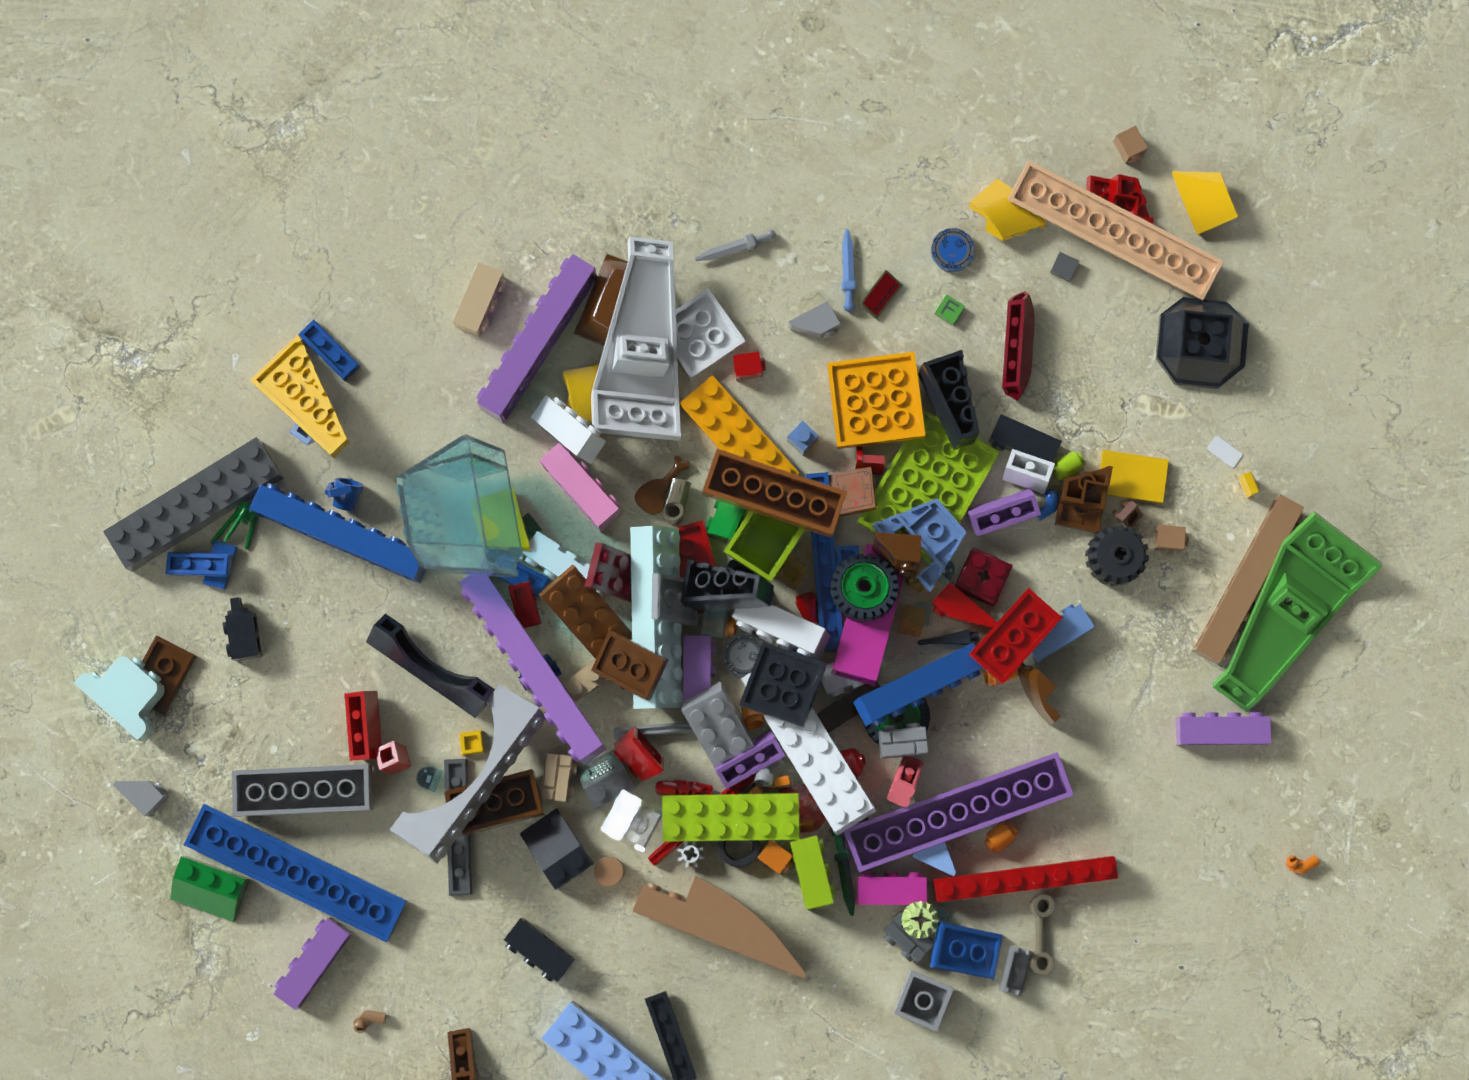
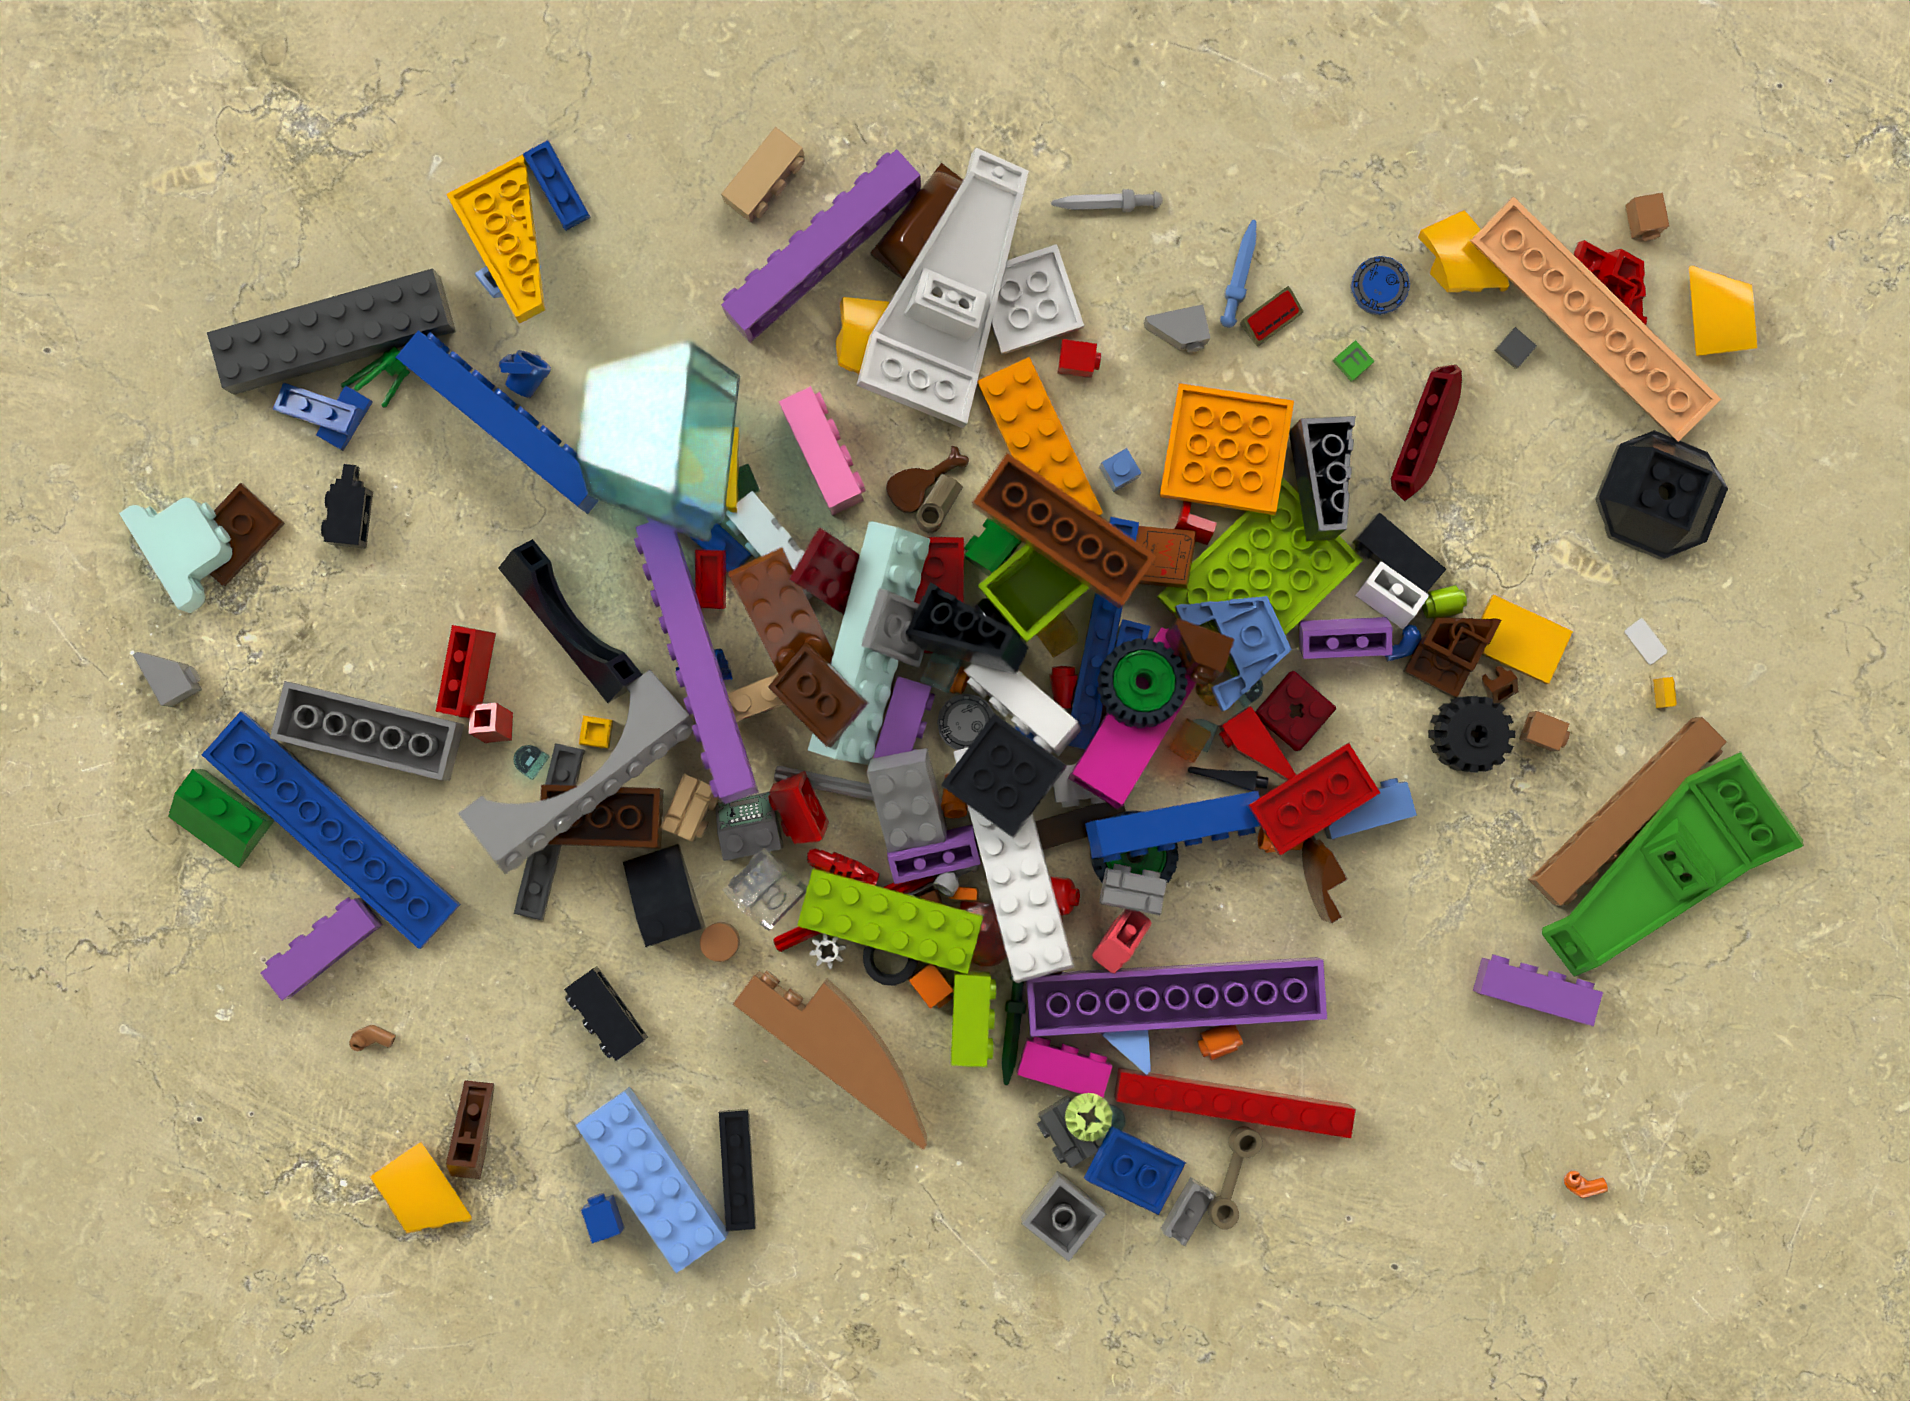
camera: 10 degrees right, 5 degrees up
(568, 428) = (828, 373): white brick -> none

